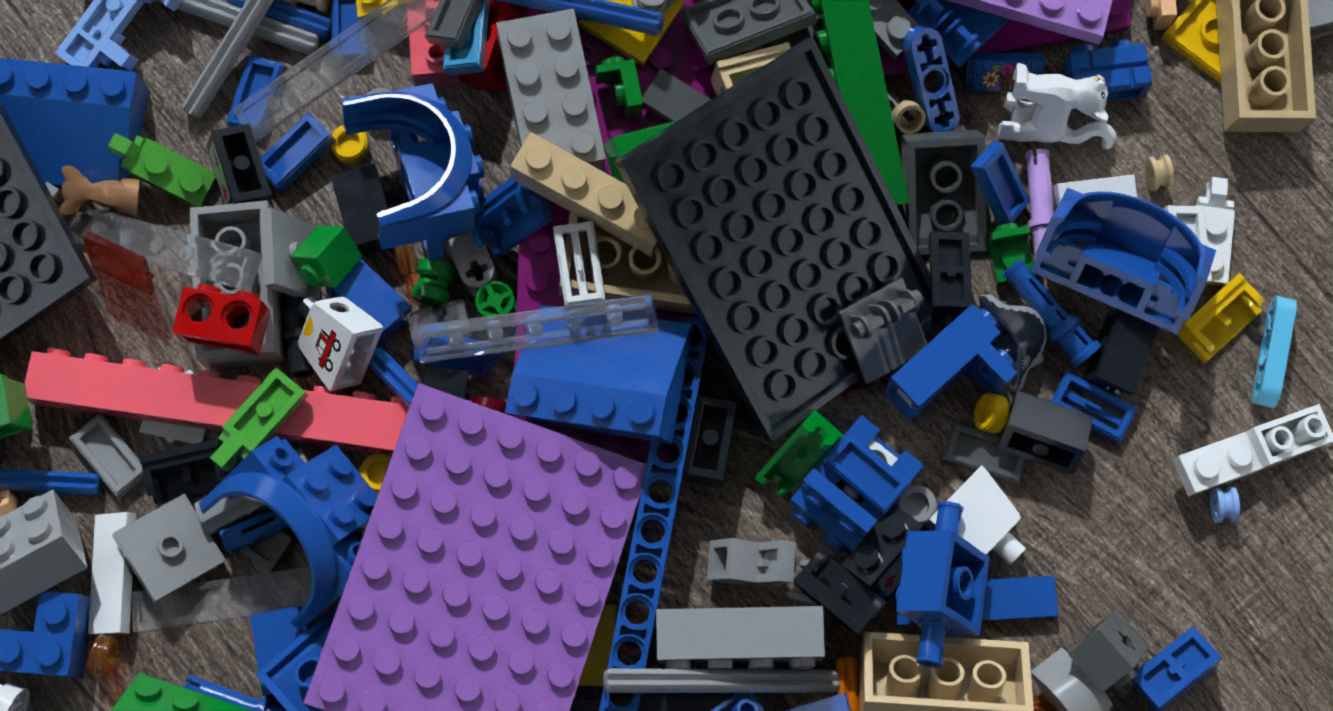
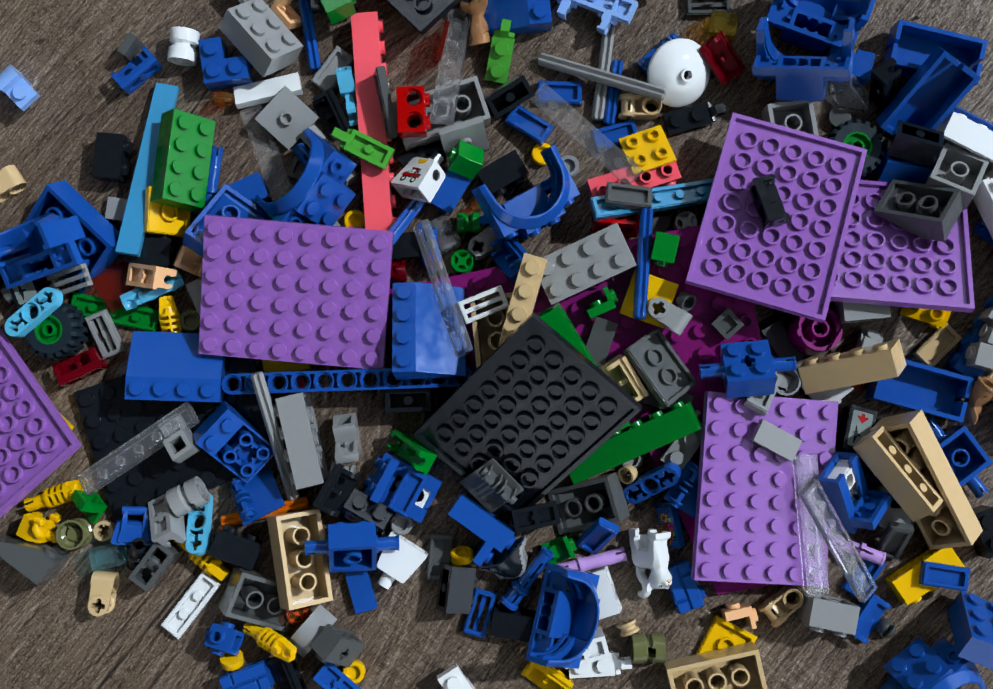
camera: 75 degrees right, 10 degrees up
(148, 433) = (347, 90): none -> medium azure piece
(192, 365) = (385, 102): none -> dark grey tile
(1158, 637) = (355, 672): none -> yellow tile
(1198, 146) = (641, 653): none -> olive wheel

